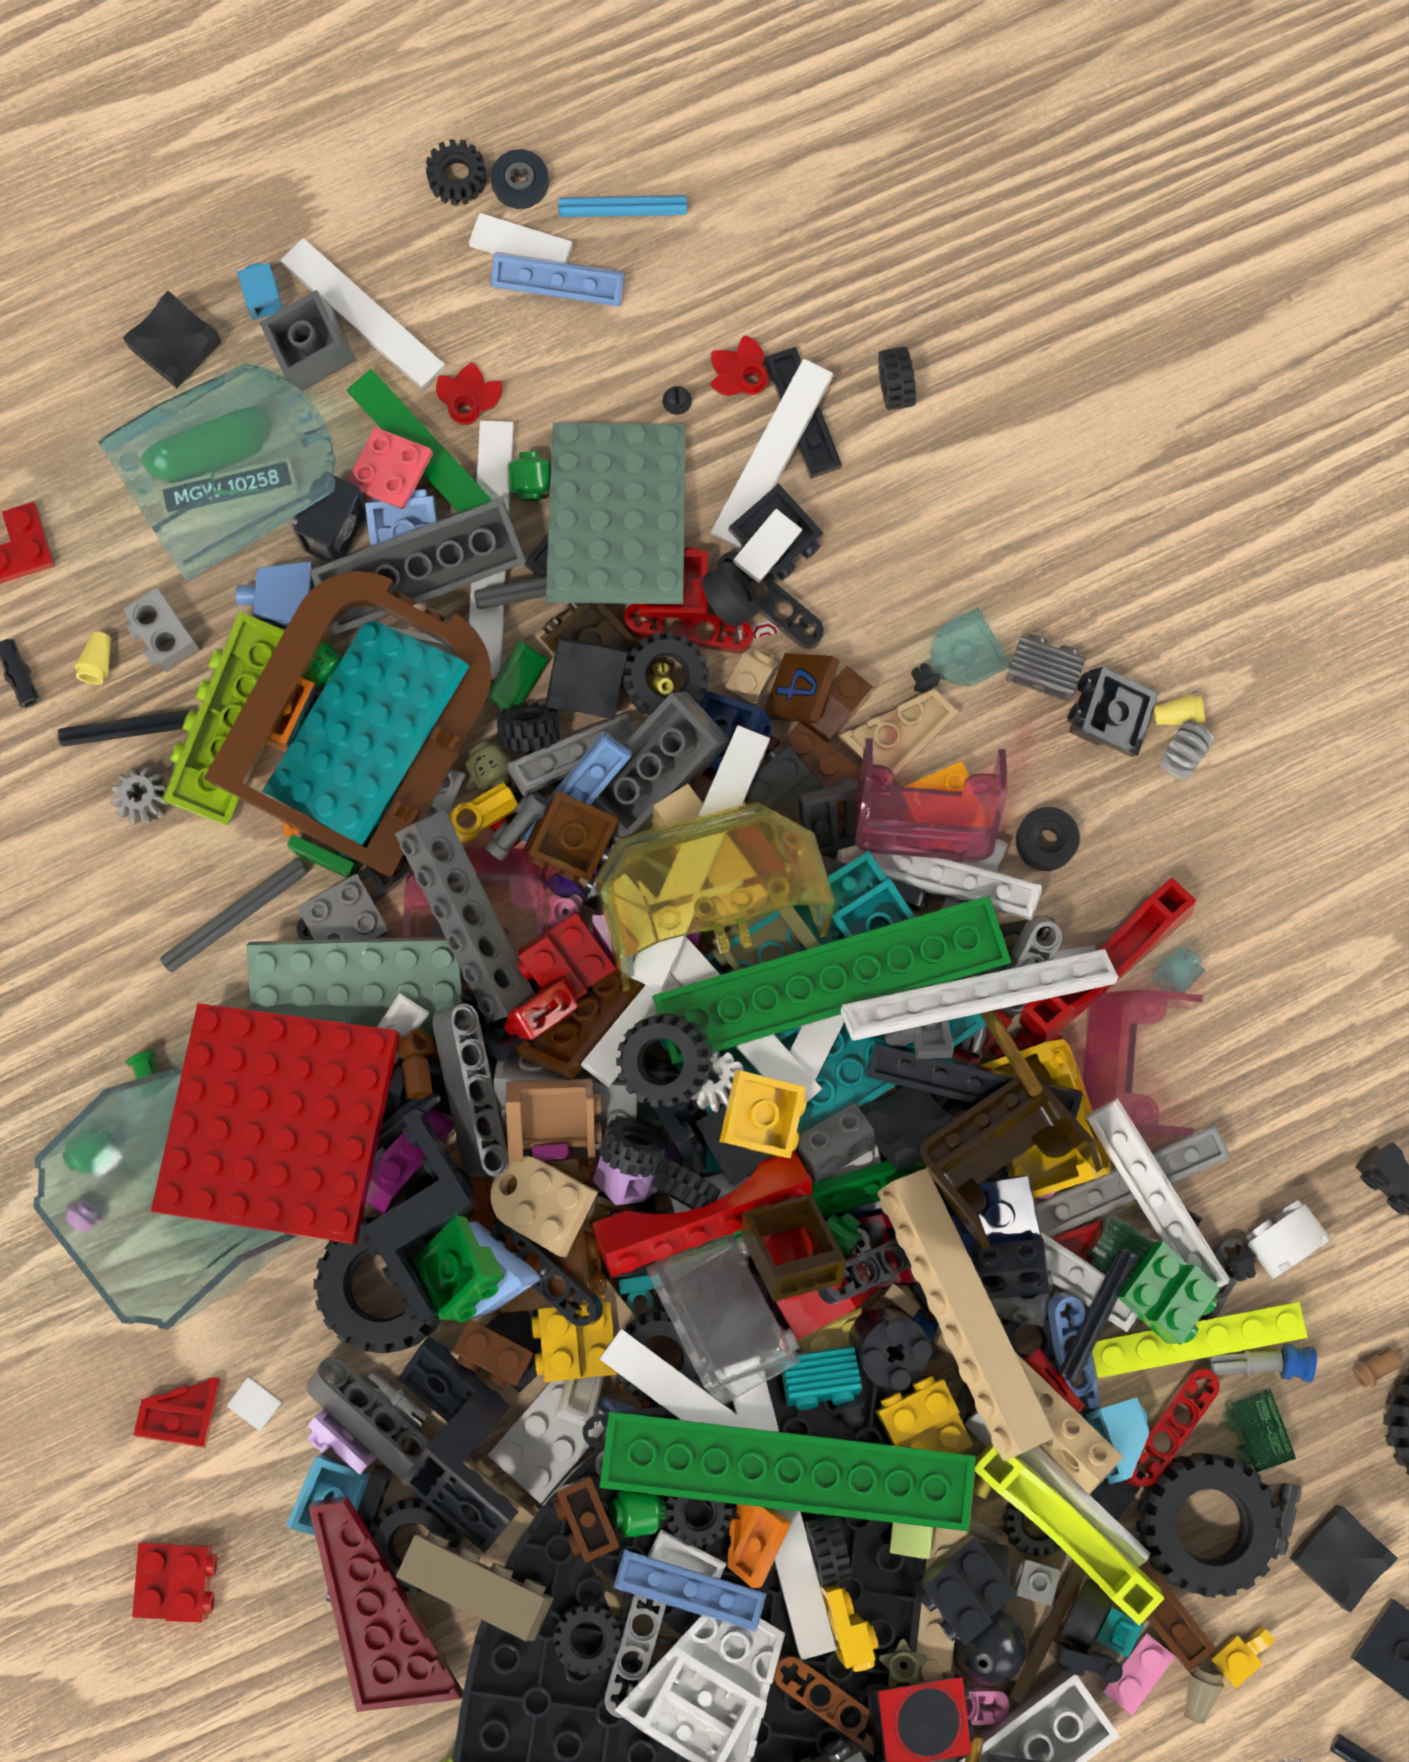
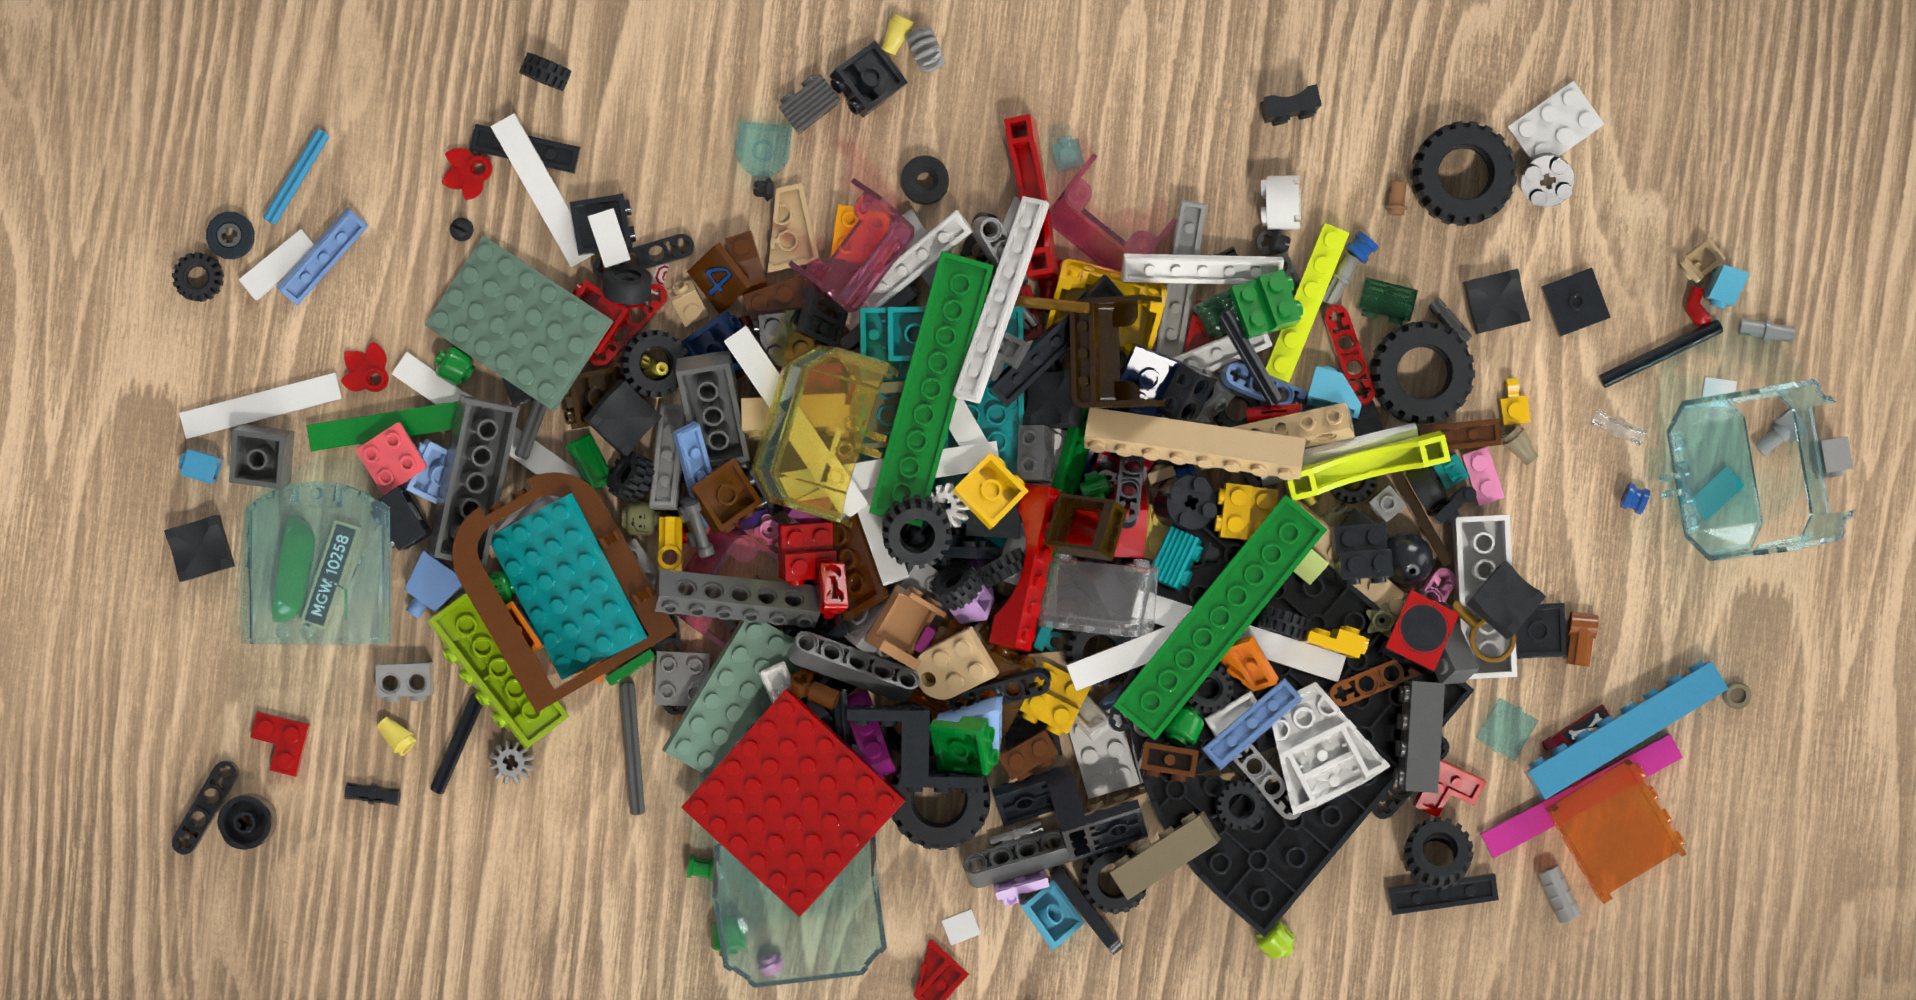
camera: 55 degrees left, 10 degrees up
(380, 1633) = (1156, 932): dark red wing -> none

